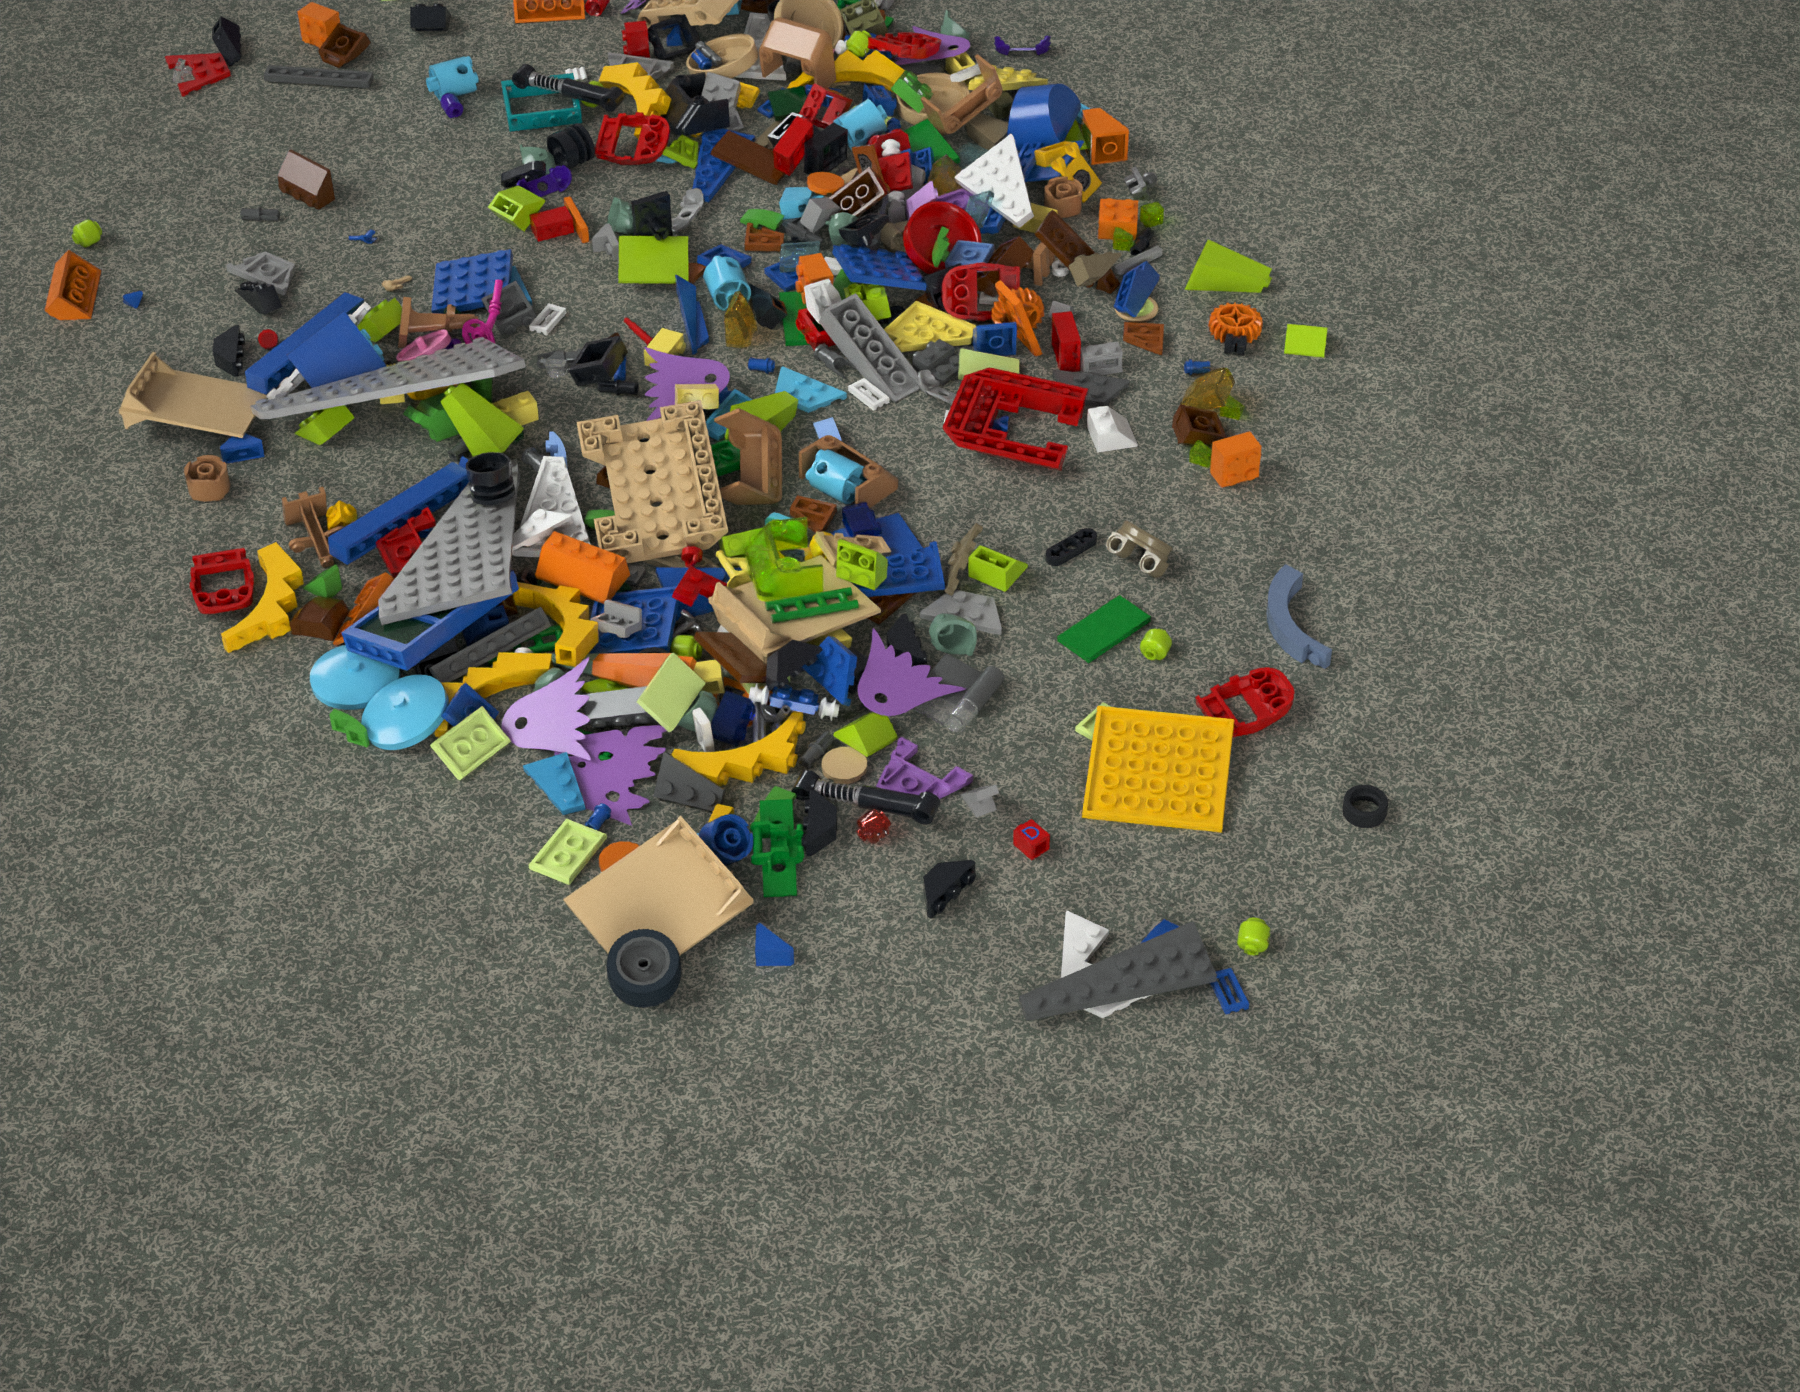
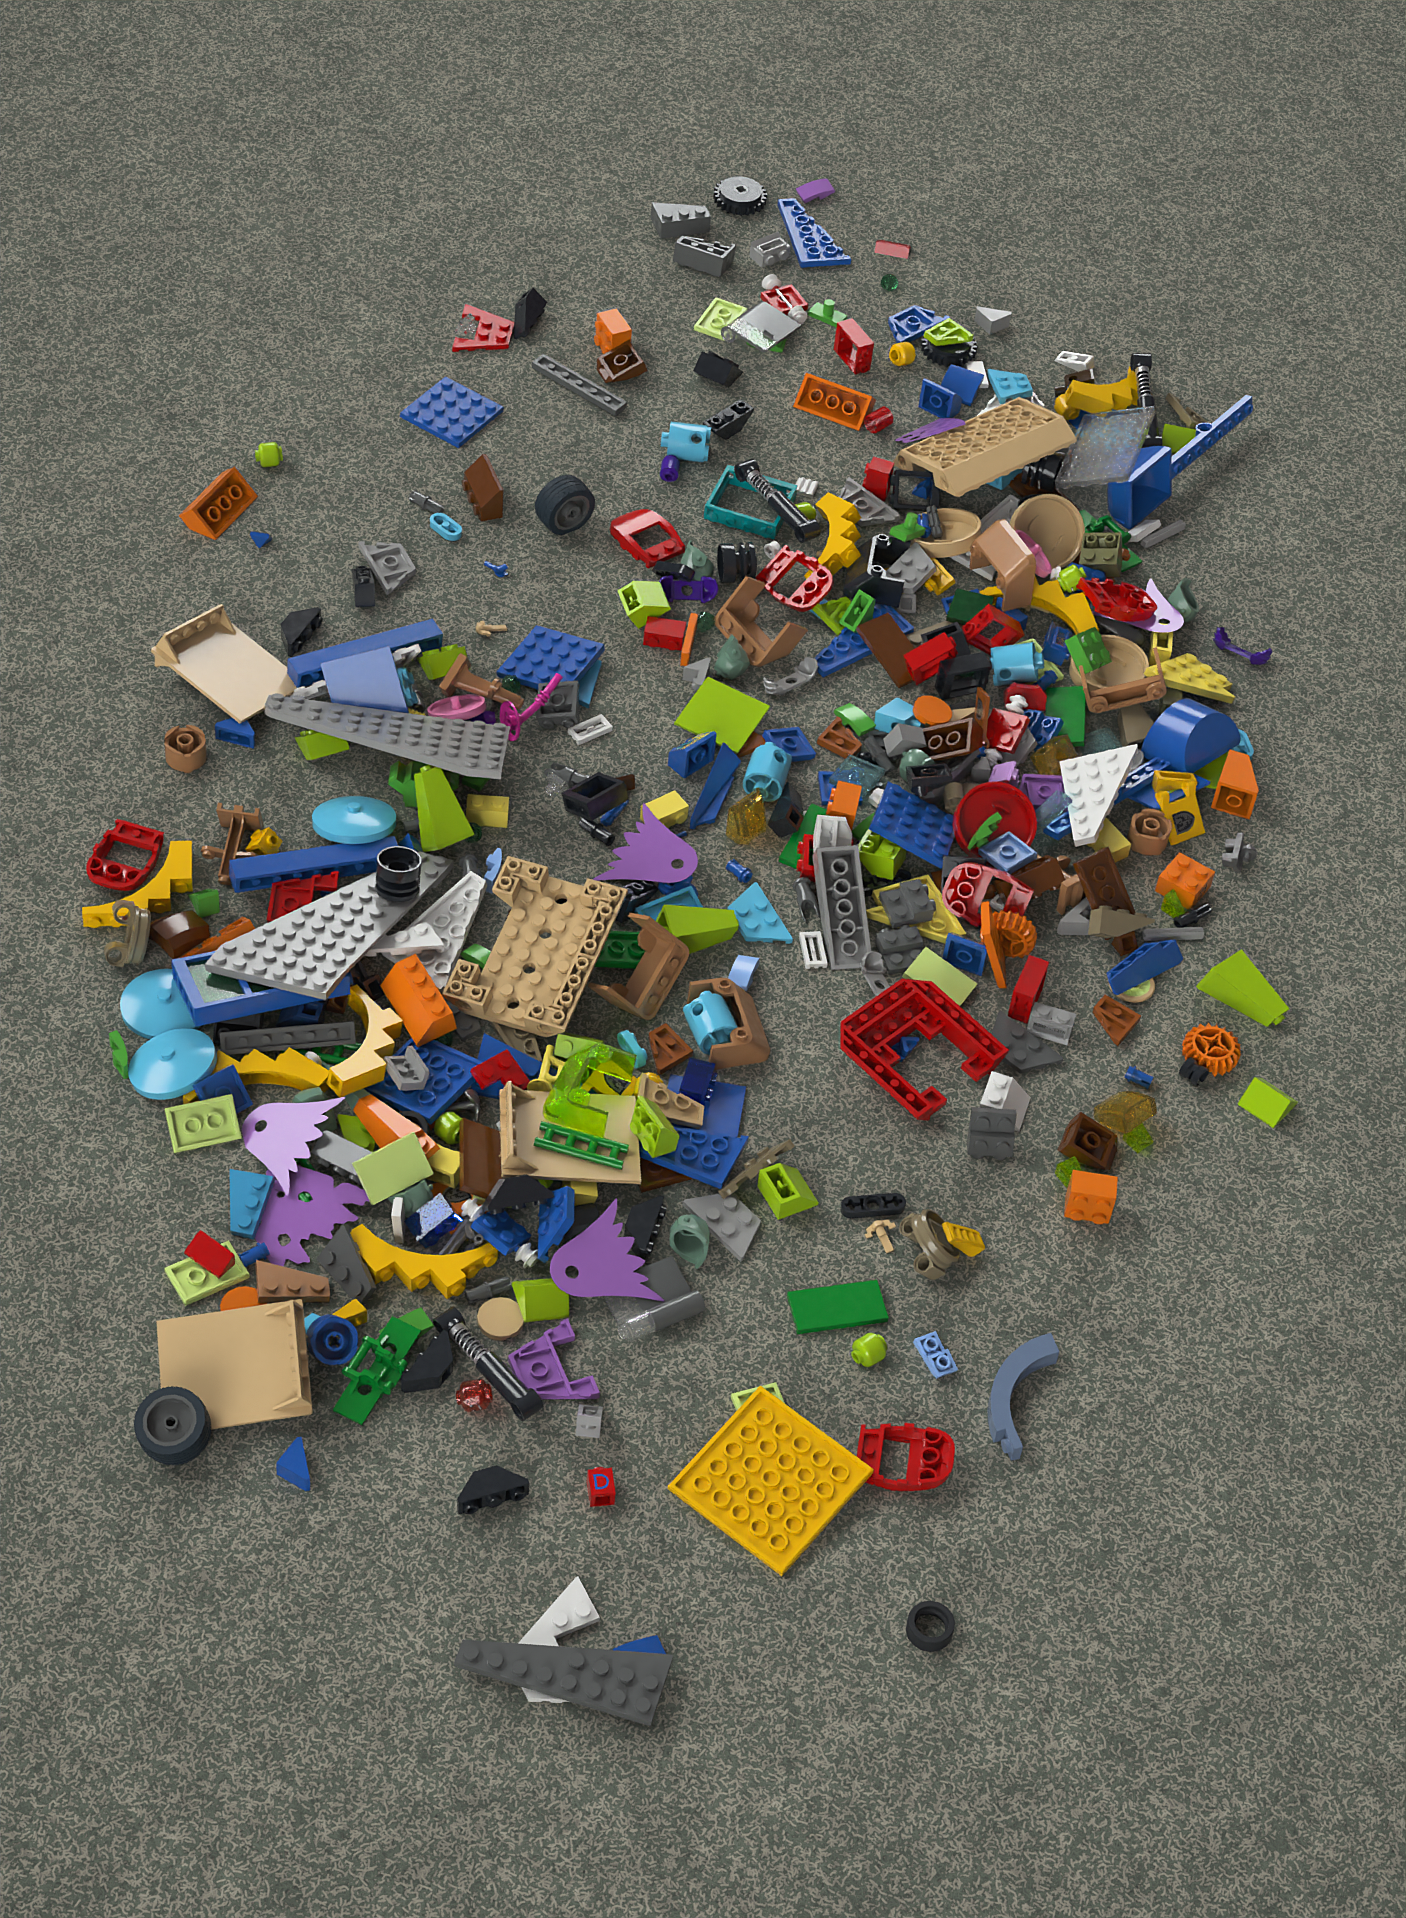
camera: 25 degrees right, 5 degrees up
(222, 140) = (451, 412): none -> plate
(268, 339) = (339, 633): red tile -> none
(289, 629) = (136, 934): none -> dark tan piece
(293, 224) = (448, 527): none -> medium azure plate
(389, 162) = (564, 504): none -> black wheel
(405, 466) = (354, 820): none -> medium azure dish
(451, 162) = (637, 521): none -> red slope
(475, 47) = (730, 420): none -> black slope
(562, 832) = (210, 1254): none -> red slope
(579, 200) = (705, 621): none -> clear green plate
(593, 126) = (772, 549): none -> white bush
(603, 182) = (738, 619): none -> medium nougat windscreen
(638, 331) = (659, 780): red piece -> none
(641, 826) = (285, 1284): none -> medium nougat wing
(652, 216) = (746, 674): black plate -> none
(652, 297) = (693, 754): none -> blue slope
(691, 555) = (522, 1038): red tile -> none
(693, 392) = (648, 877): light yellow brick -> none
(695, 64) = (909, 529): none -> bright green tile
(703, 139) = (859, 611): none -> bright green slope
(920, 325) = (908, 904): none -> dark grey plate
(965, 73) = (1165, 656): white tile -> none
(1057, 307) = (1056, 952): light grey slope -> none
(1059, 282) = (1076, 920): none -> light grey slope
(1088, 559) = (878, 1226): none -> tan piece
(1122, 451) = (991, 1132): none -> dark grey plate
(1151, 214) = (1222, 891): clear neon green slope -> none
(1165, 533) = (964, 1238): none -> yellow slope
(1214, 628) = (934, 1355): none -> light blue slope
(1243, 1004) = (653, 1761): blue tile -> none
(1253, 936) = (721, 1700): lime head -> none

